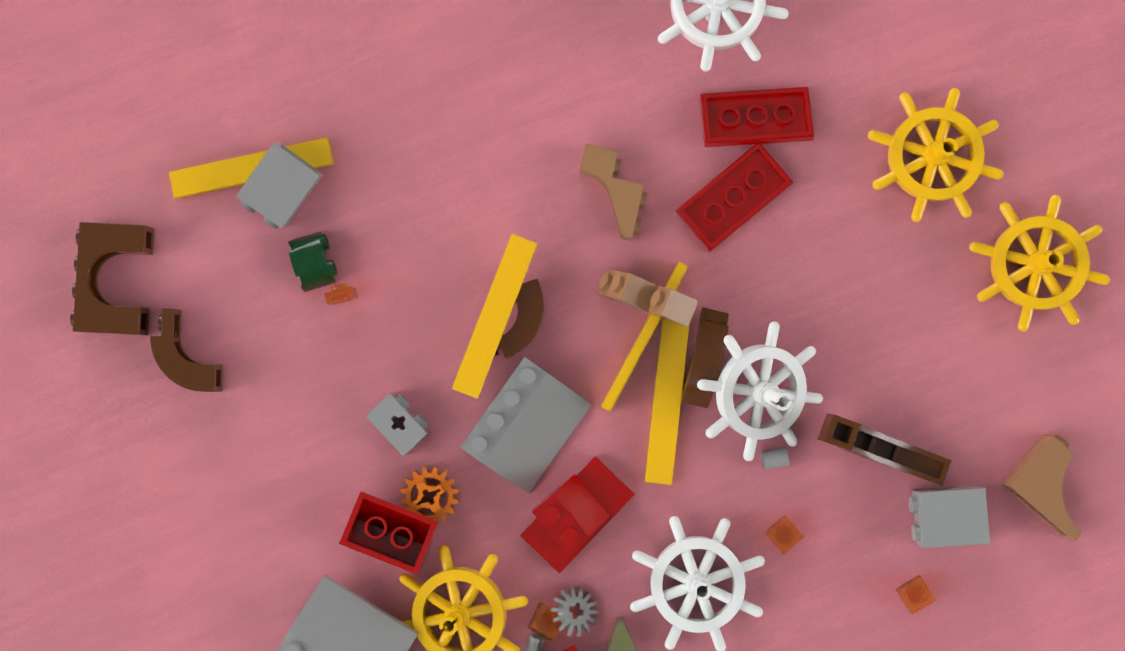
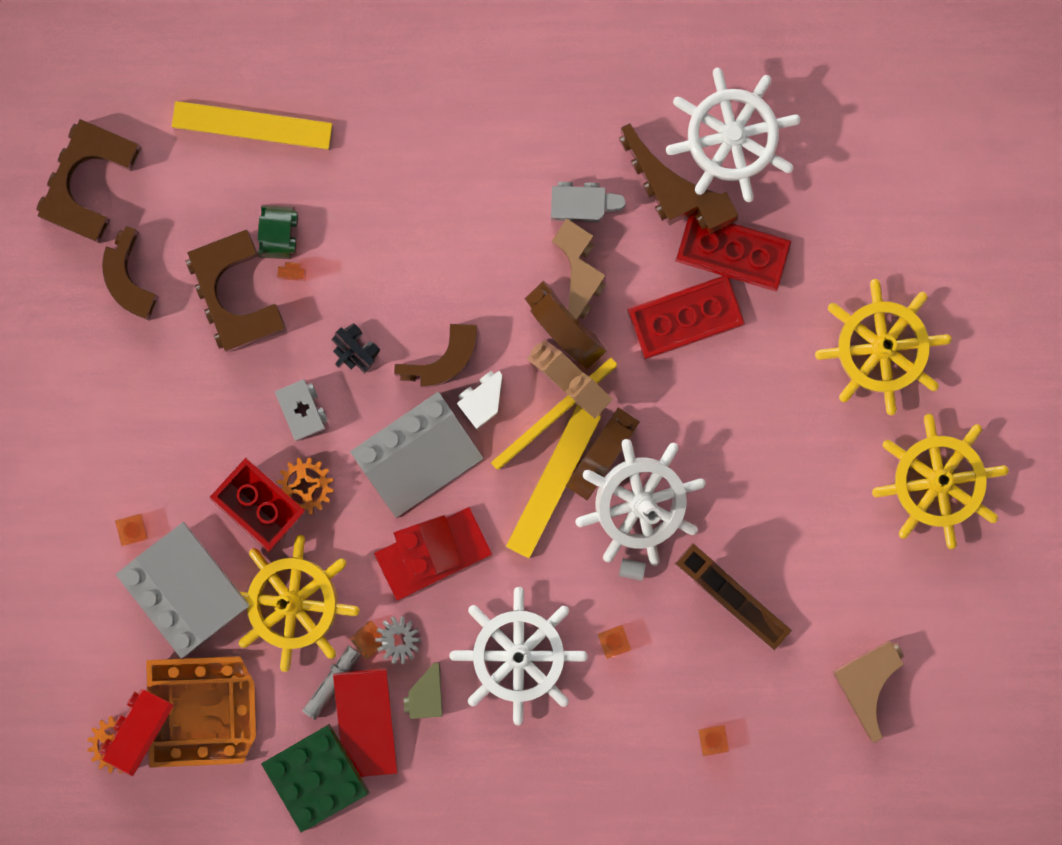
camera: 15 degrees right, 0 degrees up
(259, 316) = (209, 264): none -> reddish brown arch
(277, 600) = (131, 529): none -> clear orange plate
(279, 186) = (272, 153): light grey brick -> none
(426, 350) = (351, 352): none -> black hips
(494, 316) = (425, 344): yellow tile -> none
(571, 350) = (483, 402): none -> white slope
(595, 124) = (583, 203): none -> light grey hinge
(621, 248) = (563, 326): none -> reddish brown arch
(680, 81) = (675, 194): none -> reddish brown arch
(949, 516) = (770, 681): light grey brick -> none

